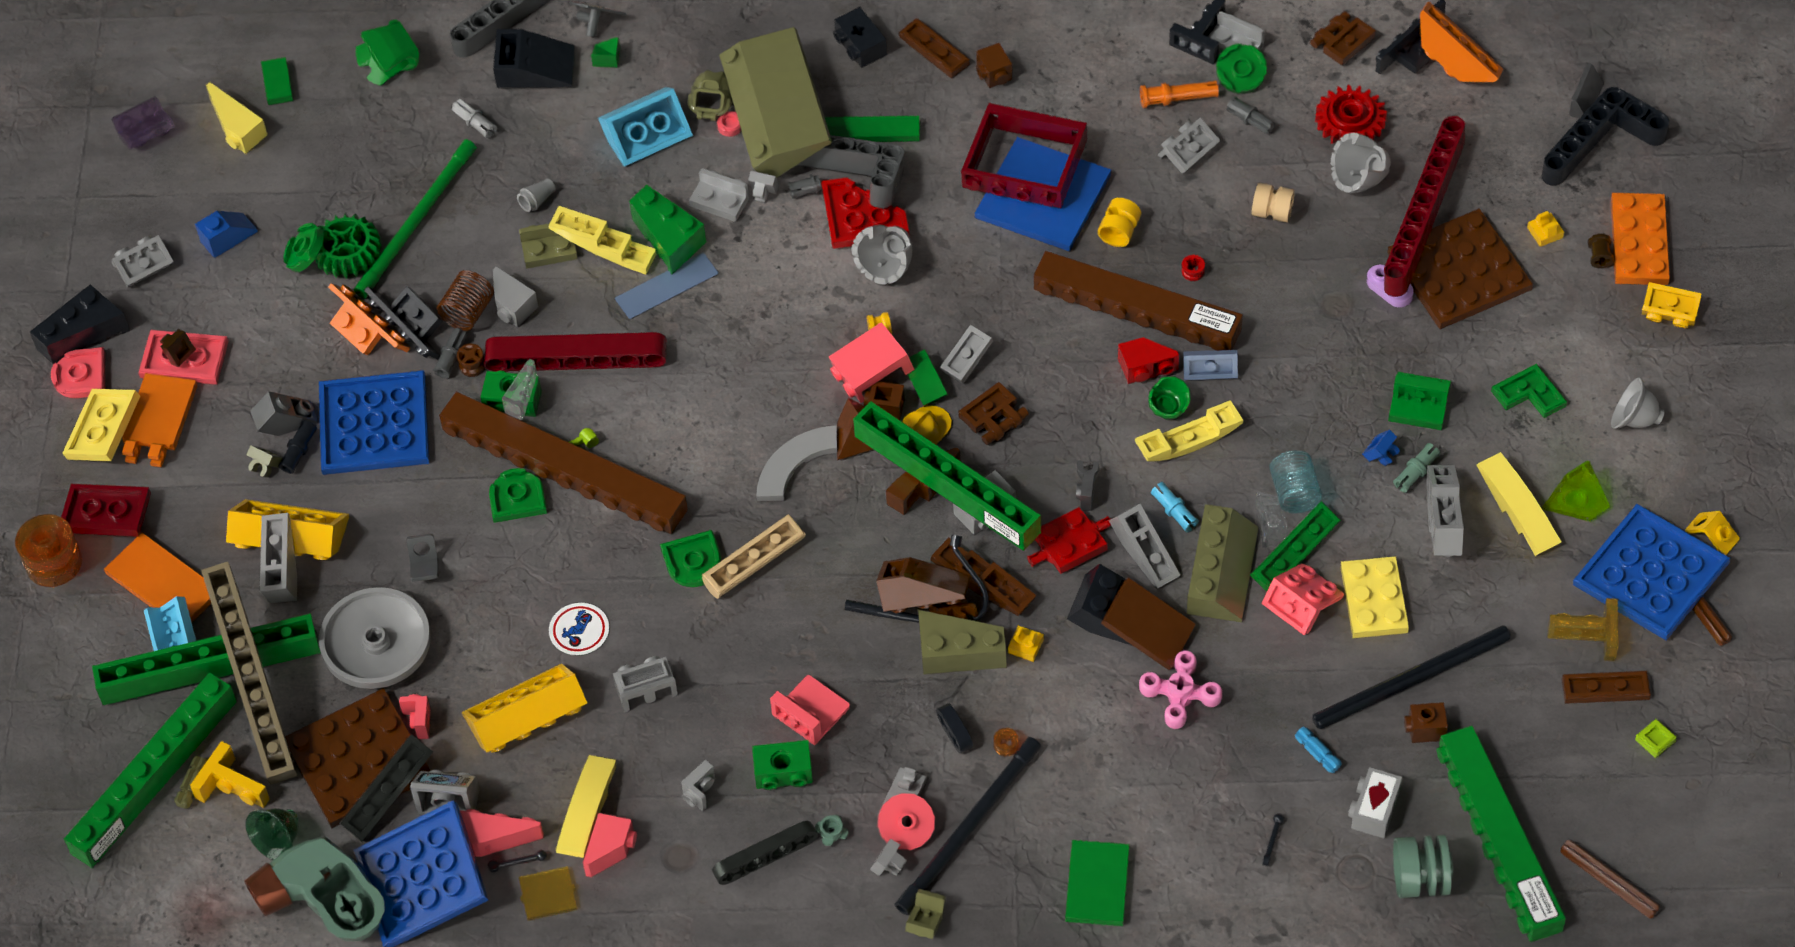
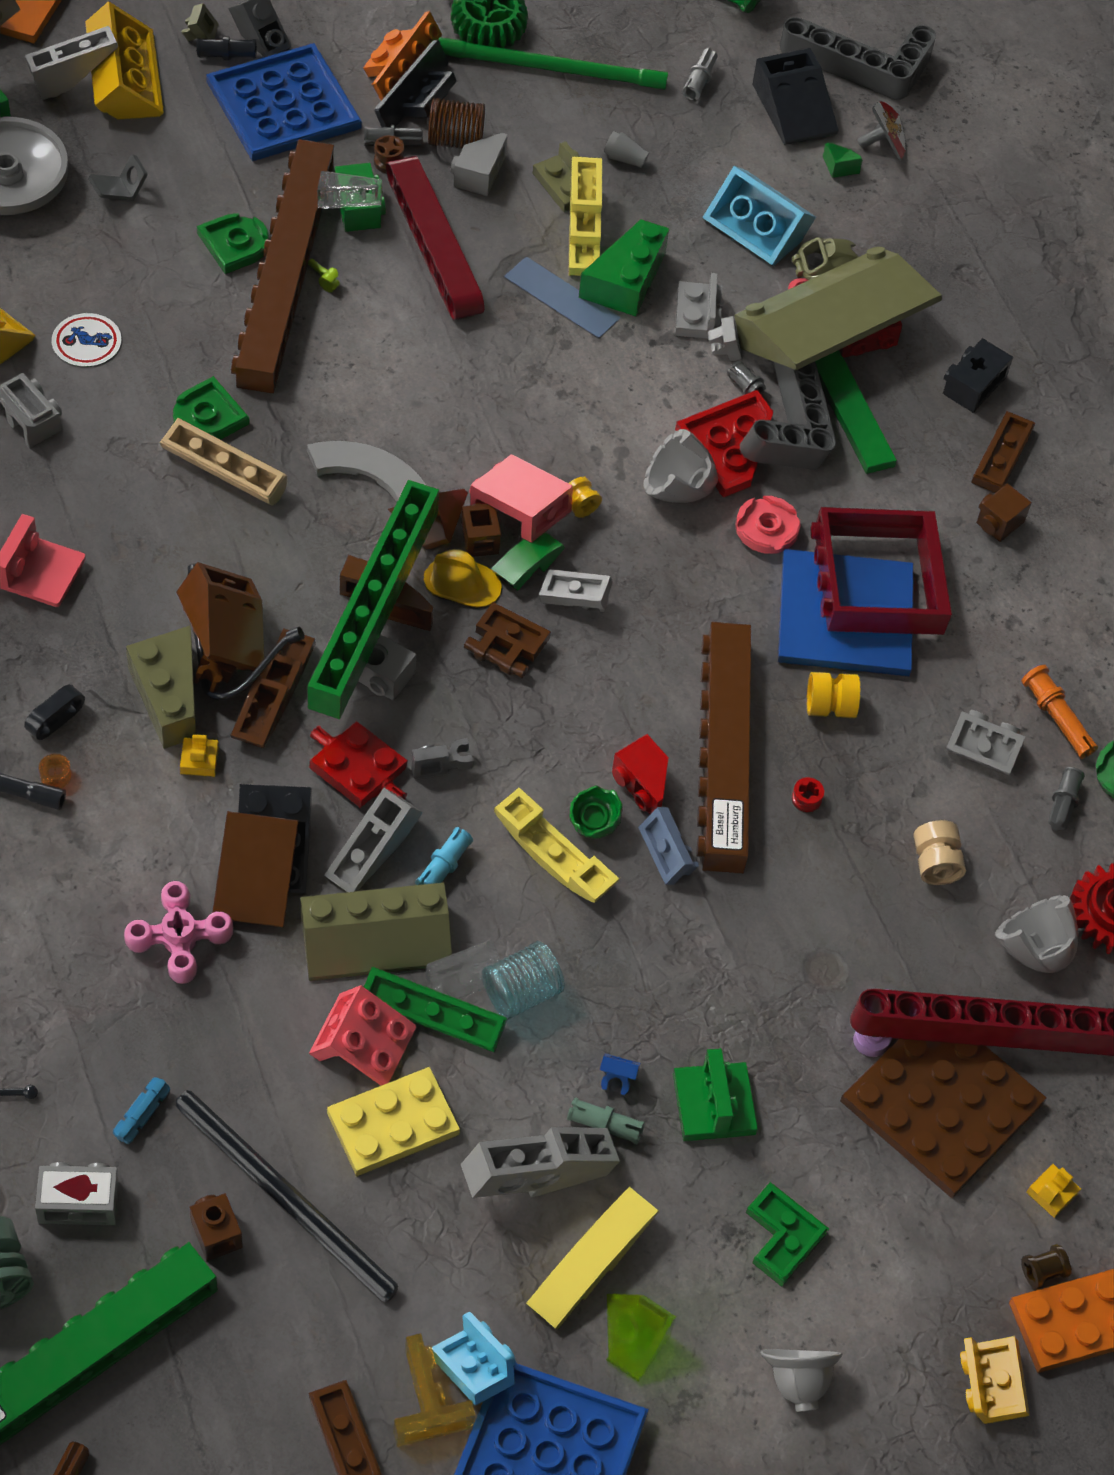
camera: 60 degrees right, 0 degrees up
(948, 206) = (771, 513): none -> coral plate
(1576, 589) = (476, 1360): none -> medium azure bracket

